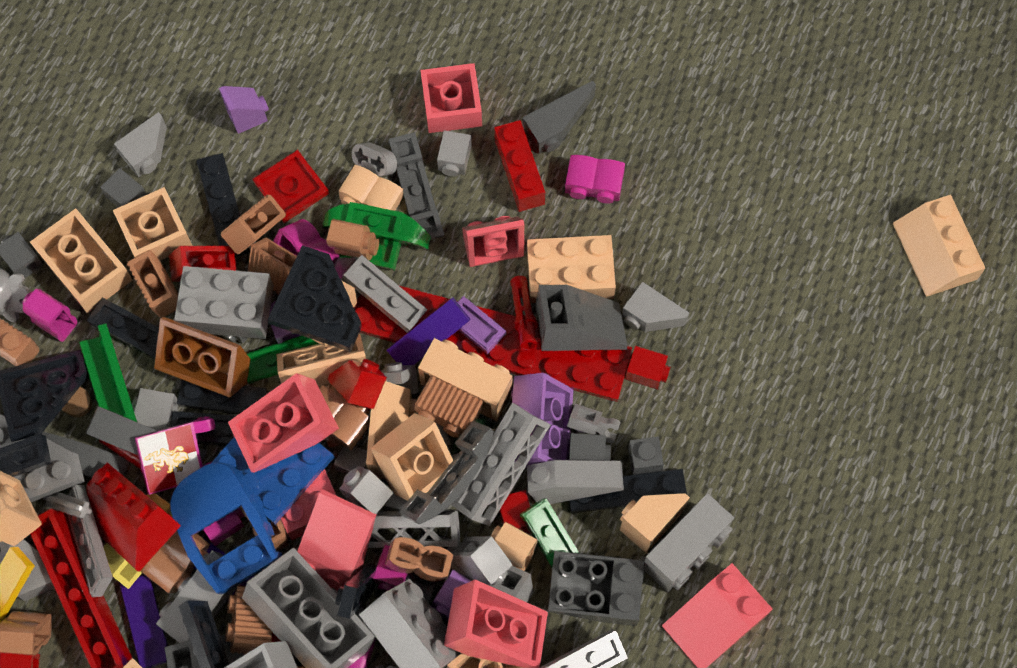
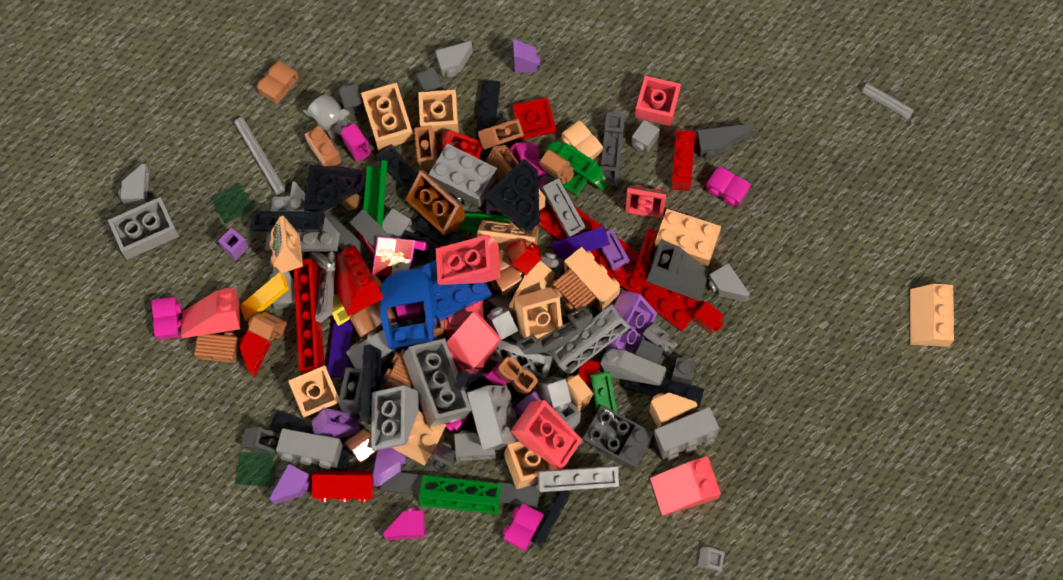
camera: 25 degrees right, 0 degrees up
(364, 150) = (593, 121): light grey beam -> none

